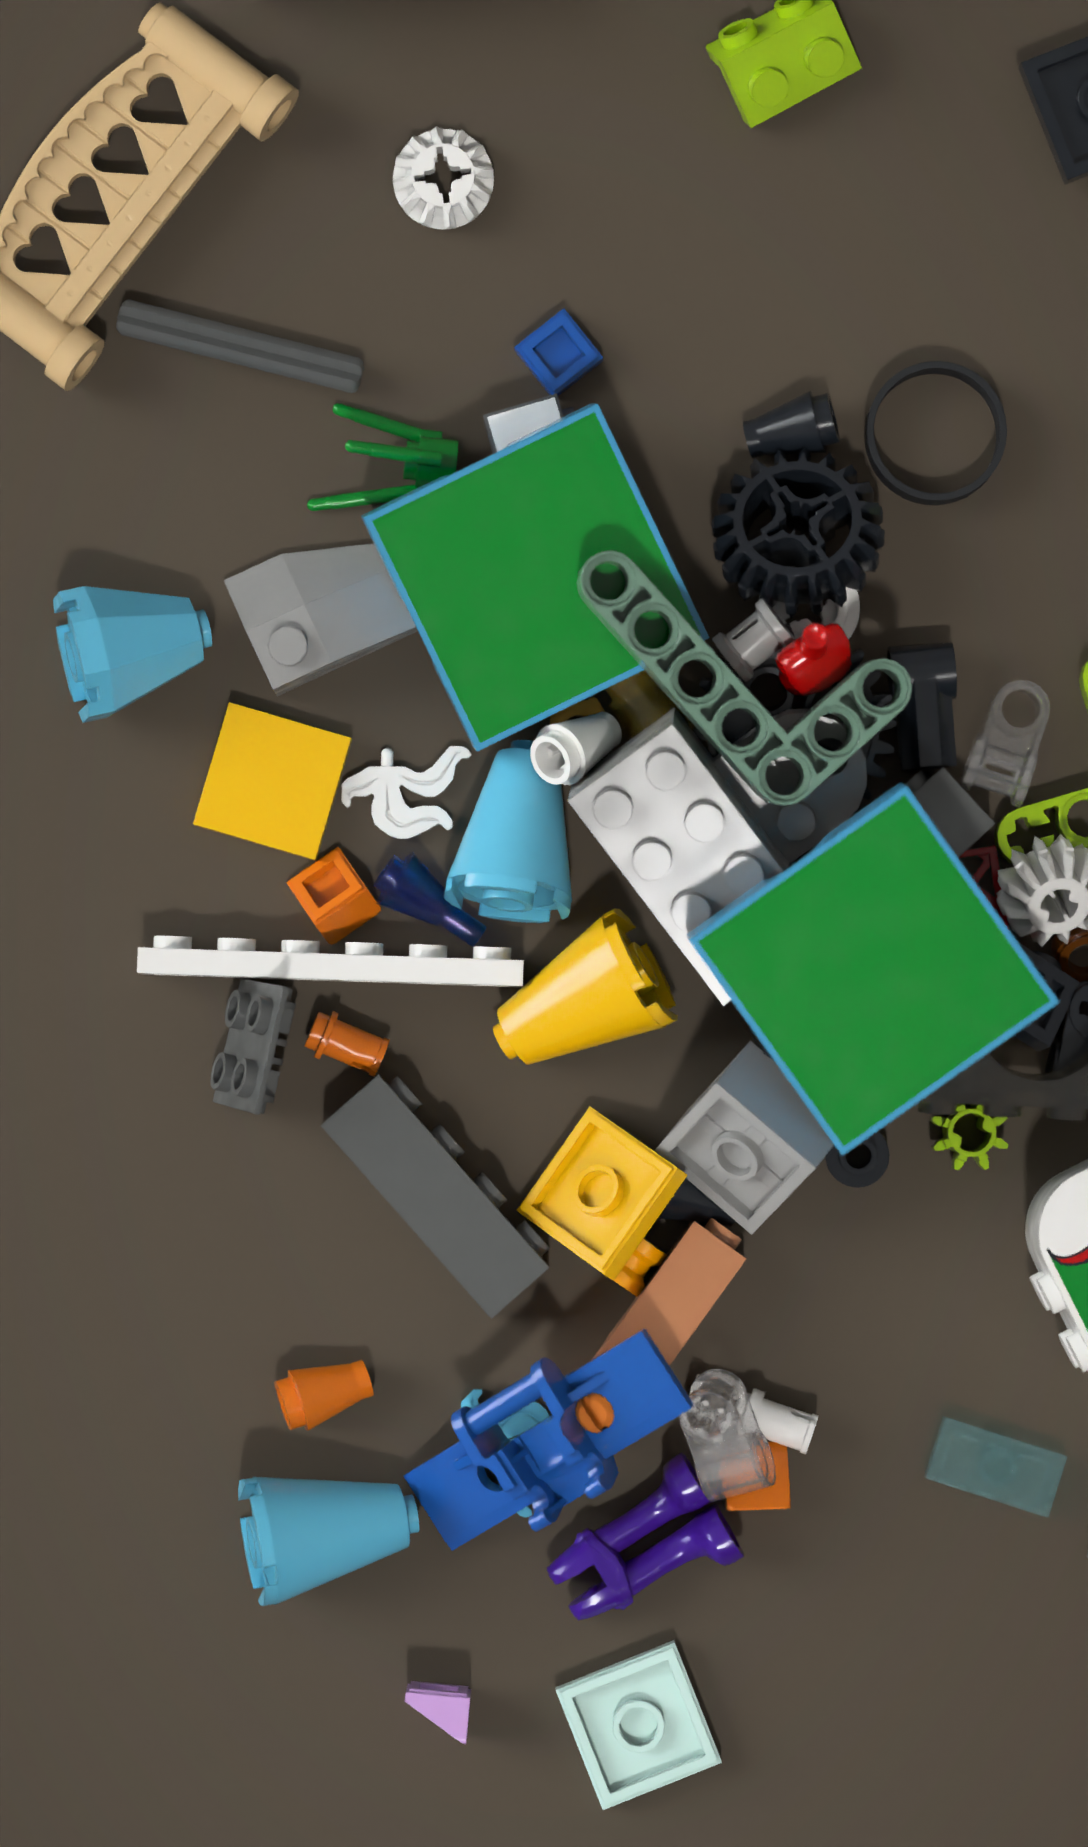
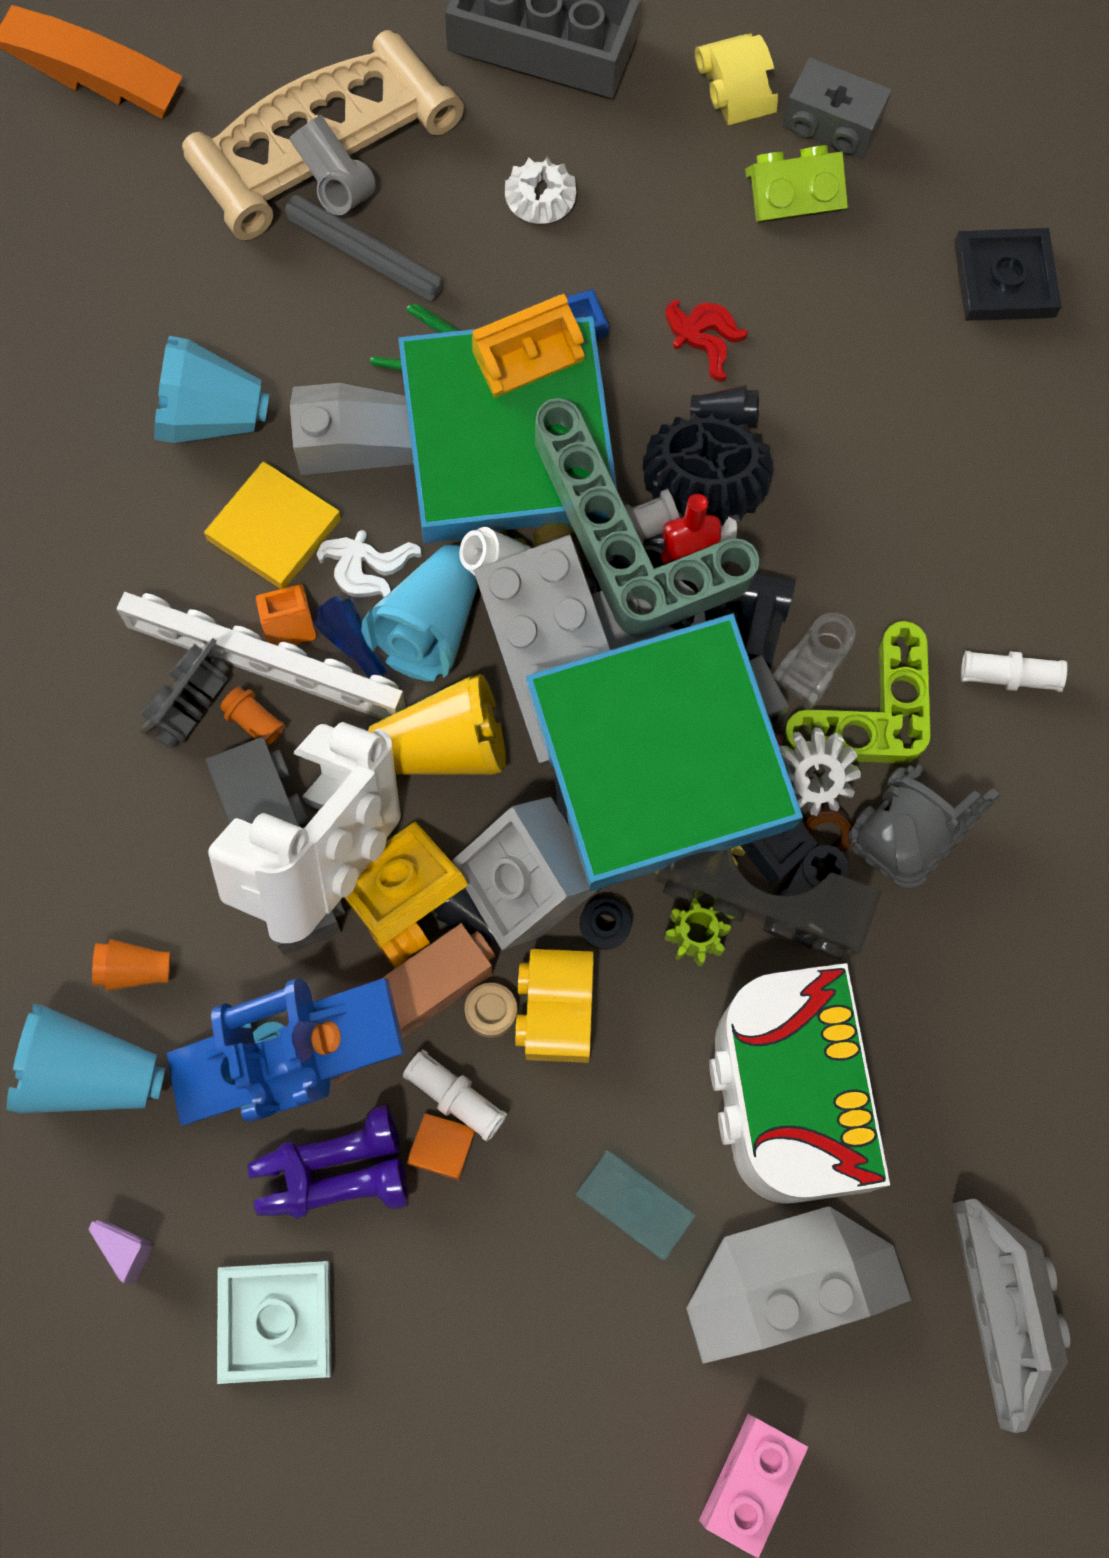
camera: 15 degrees right, 15 degrees down
(179, 264) = (340, 180): none -> light grey piece
(485, 1250) = (300, 873): none -> white container
(535, 483) = (528, 345): none -> light orange hinge
(717, 298) = (692, 328): none -> red piece
(727, 1446) = (422, 1105): clear piece -> none
(757, 1300) = (490, 1010): none -> tan tile
(835, 1274) = (557, 1005): none -> yellow brick
(965, 375) = (834, 403): black tyre -> none

